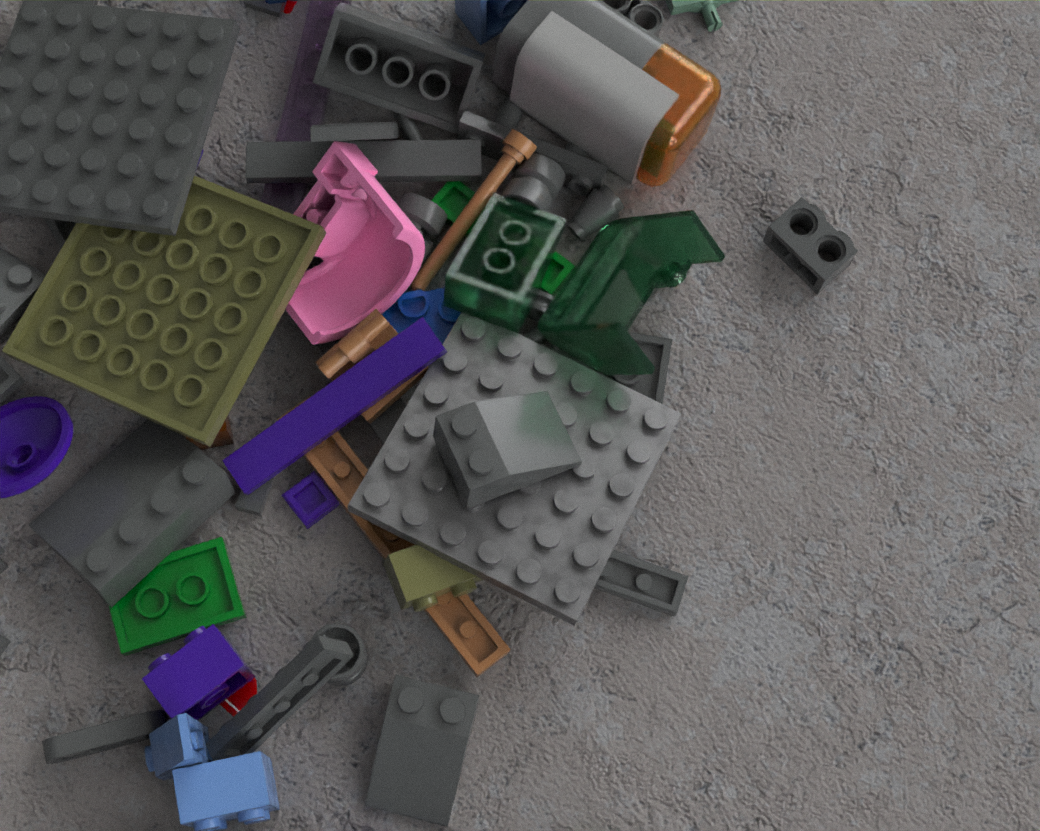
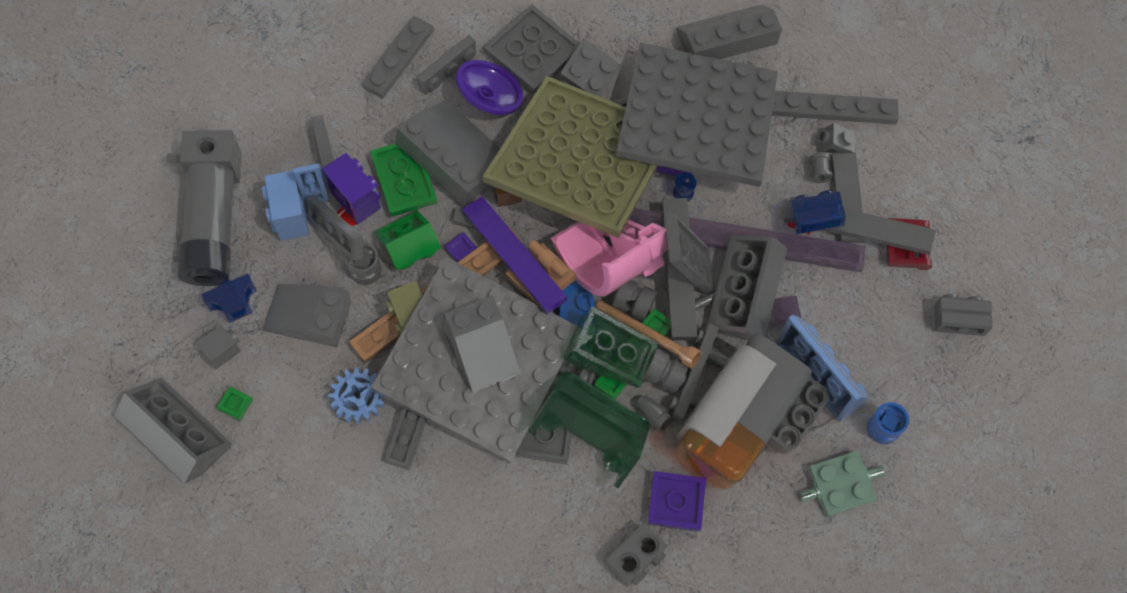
camera: 90 degrees right, 5 degrees down
(227, 156) = (680, 182): none -> clear blue bush
(292, 585) = (408, 240): none -> green slope
(431, 19) = (784, 308): none -> clear purple plate
(552, 667) = (347, 400): none -> medium blue gear
(729, 187) = (677, 501): none -> dark purple plate

